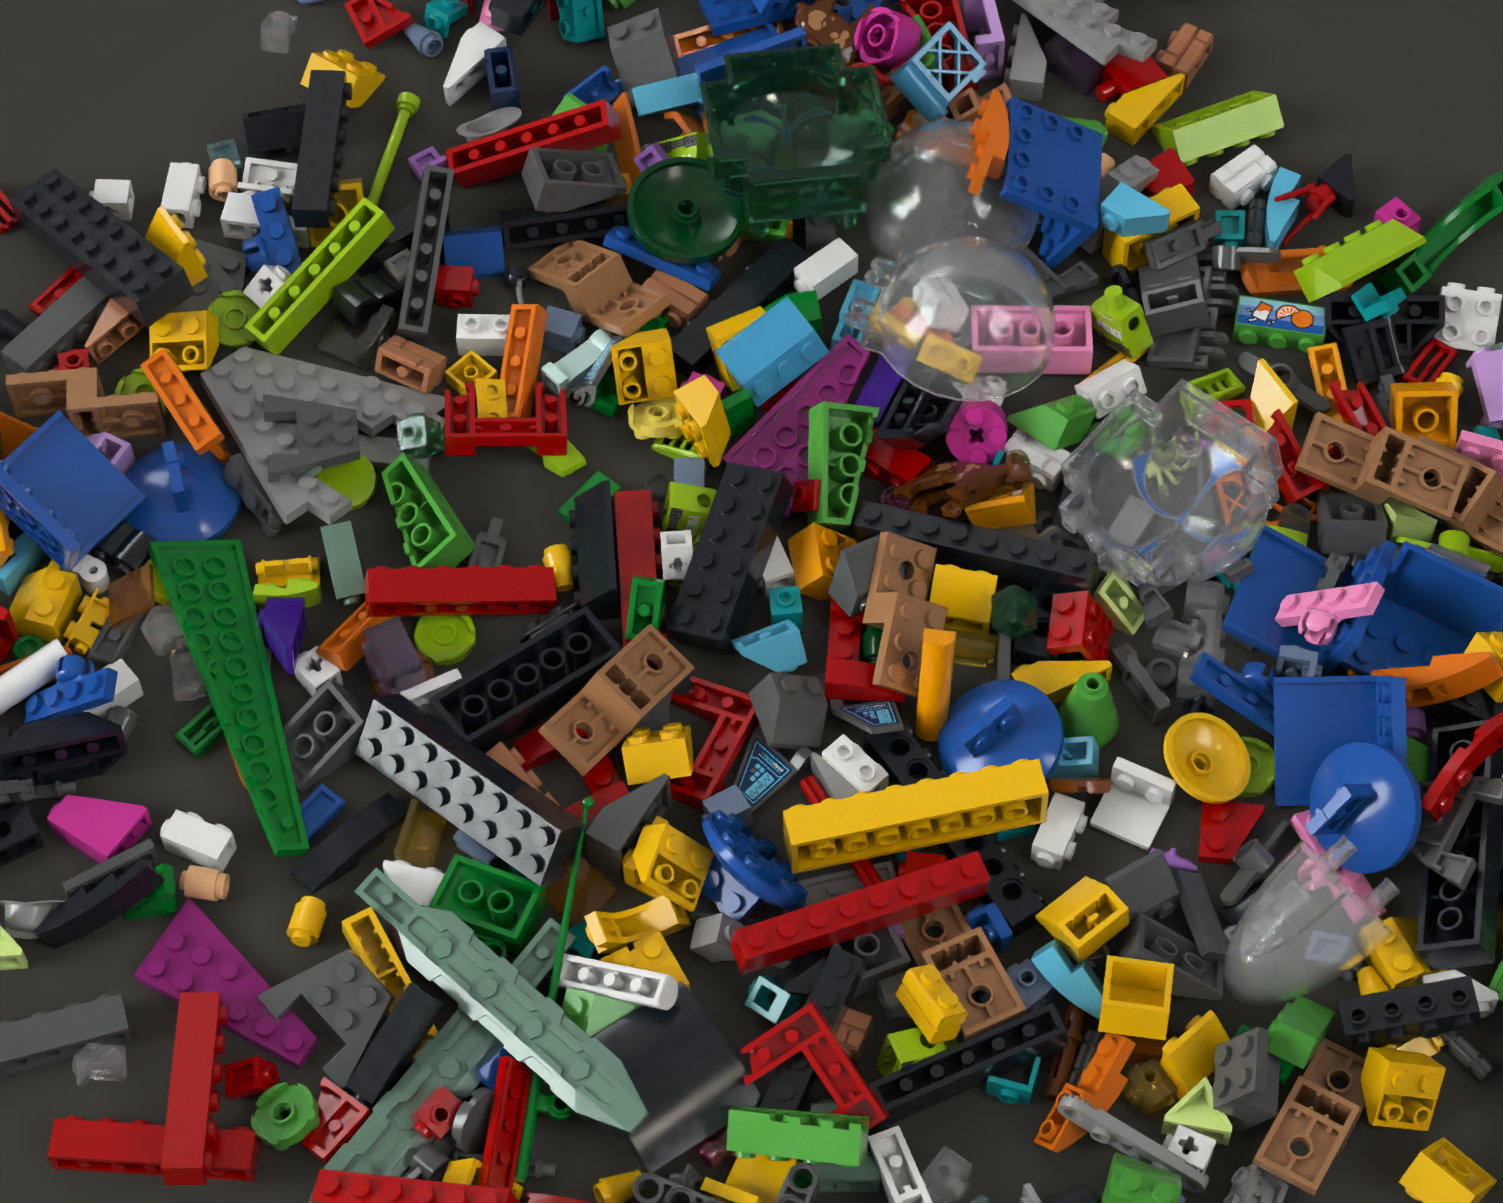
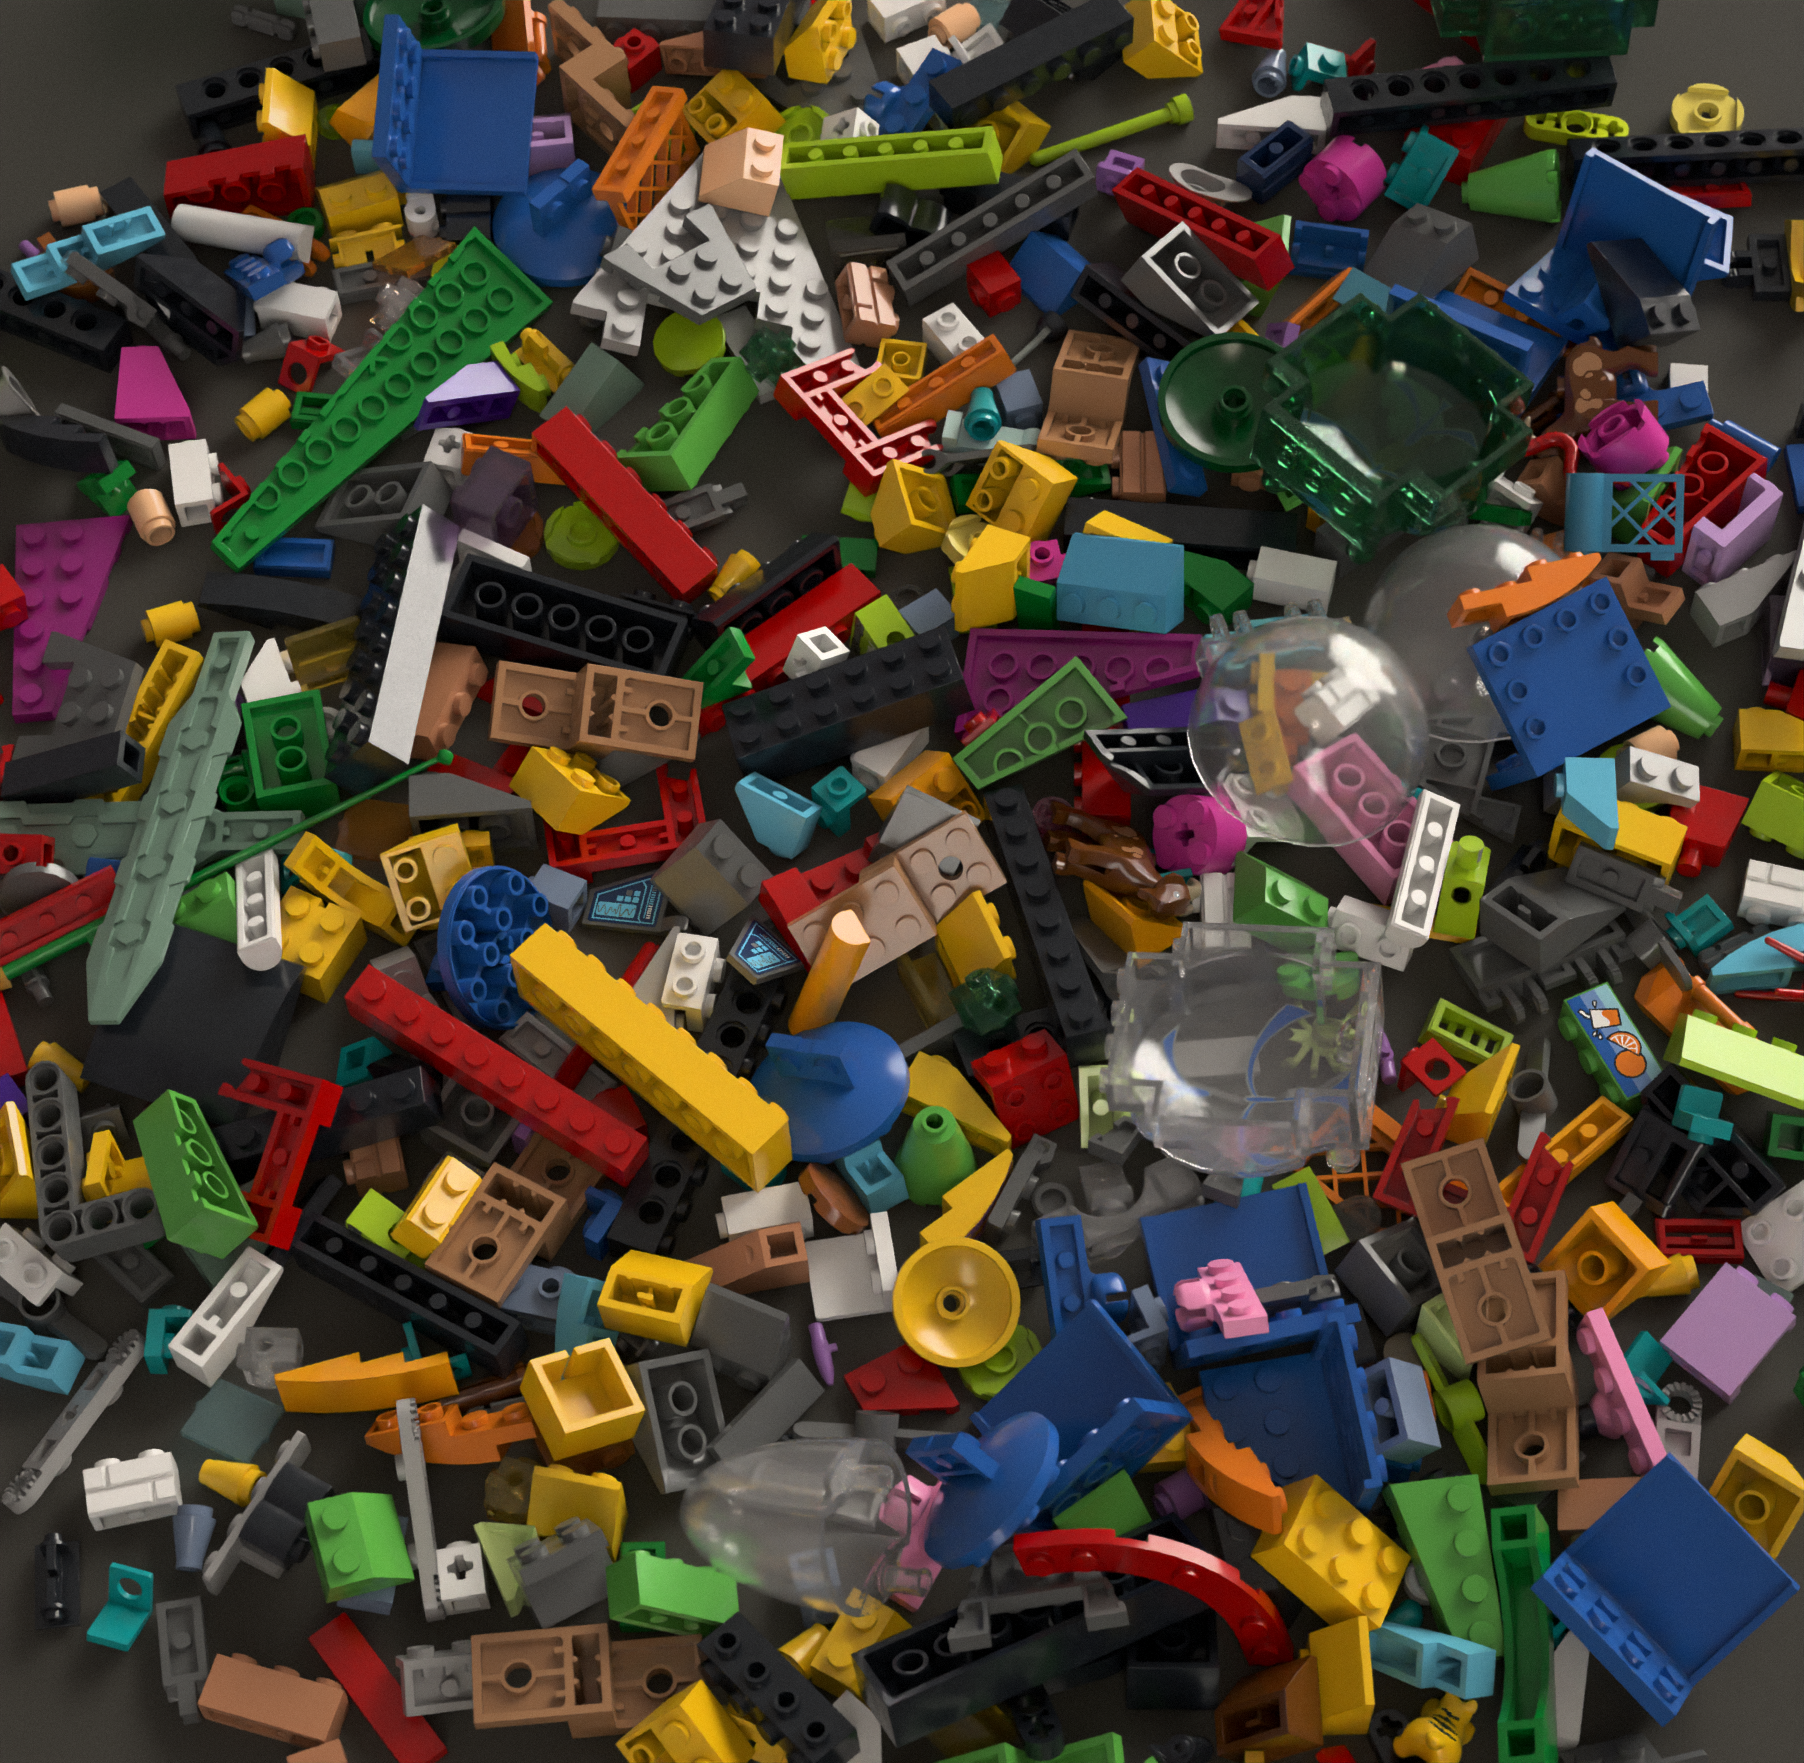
camera: 55 degrees right, 0 degrees up
(155, 705) = (310, 354): none -> red bracket
(177, 766) = (263, 414): none -> yellow brick
(233, 818) = (237, 489): none -> red bracket
(249, 361) = (742, 171): none -> light nougat slope
(551, 53) = (1343, 179): none -> dark pink brick
(564, 351) = (982, 416): none -> teal cone
(598, 437) = (911, 509): none -> yellow slope
(1007, 1137) = (356, 1386): none -> light orange slope
(1089, 850) = (759, 1260): none -> nougat slope
(1104, 330) = (1422, 870): none -> white brick
(1138, 720) = (971, 1202): none -> yellow slope

